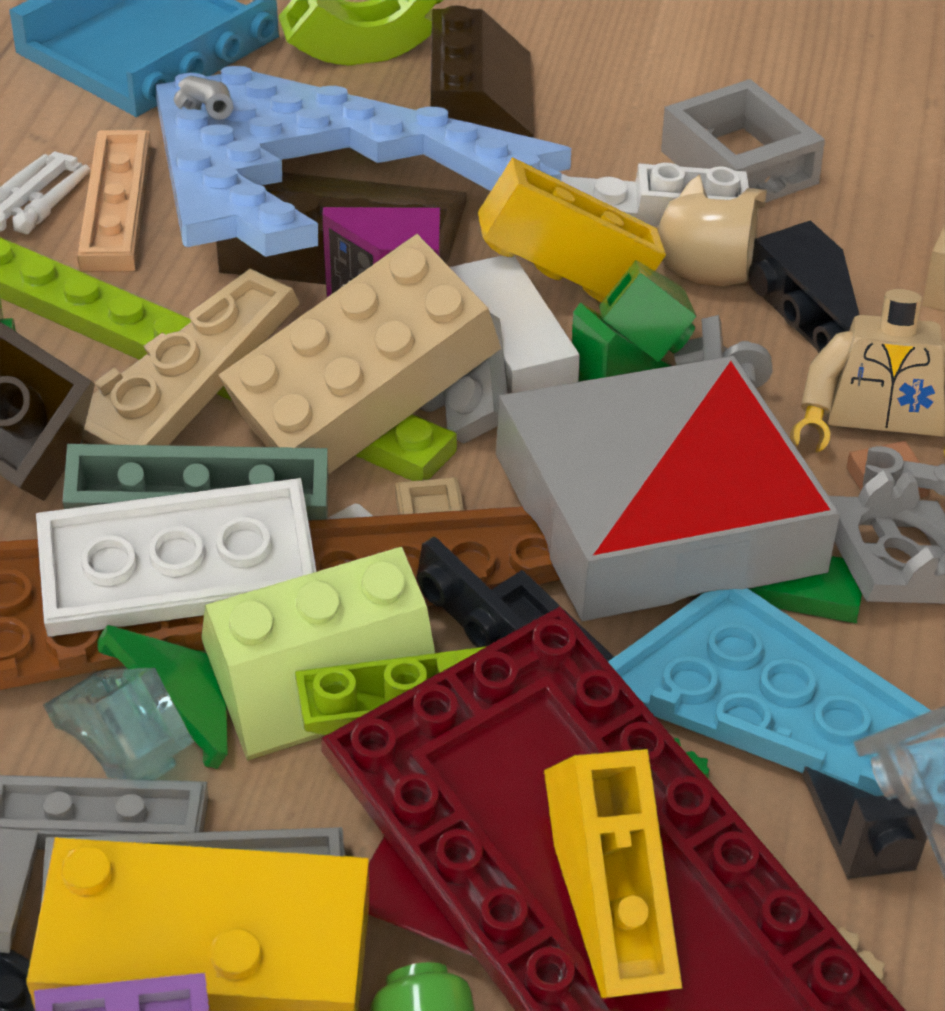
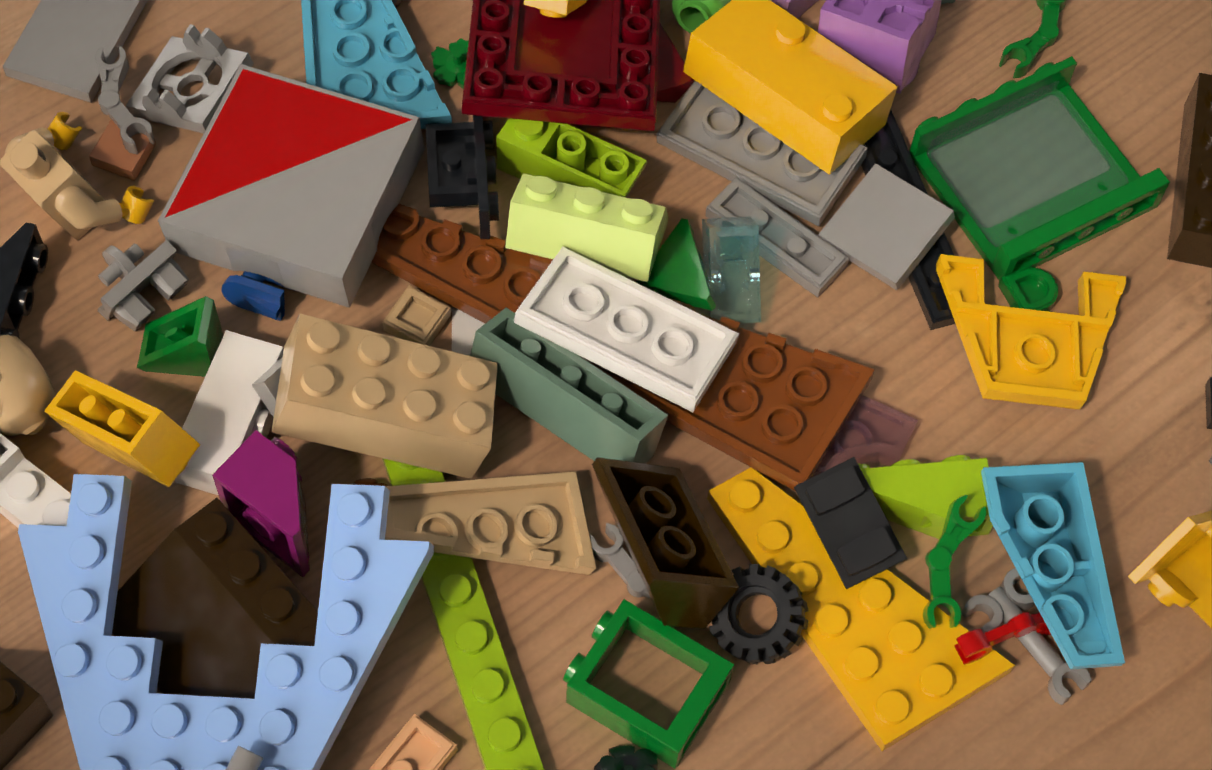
camera: 145 degrees left, 20 degrees up
(649, 311) = (140, 331): green slope -> none

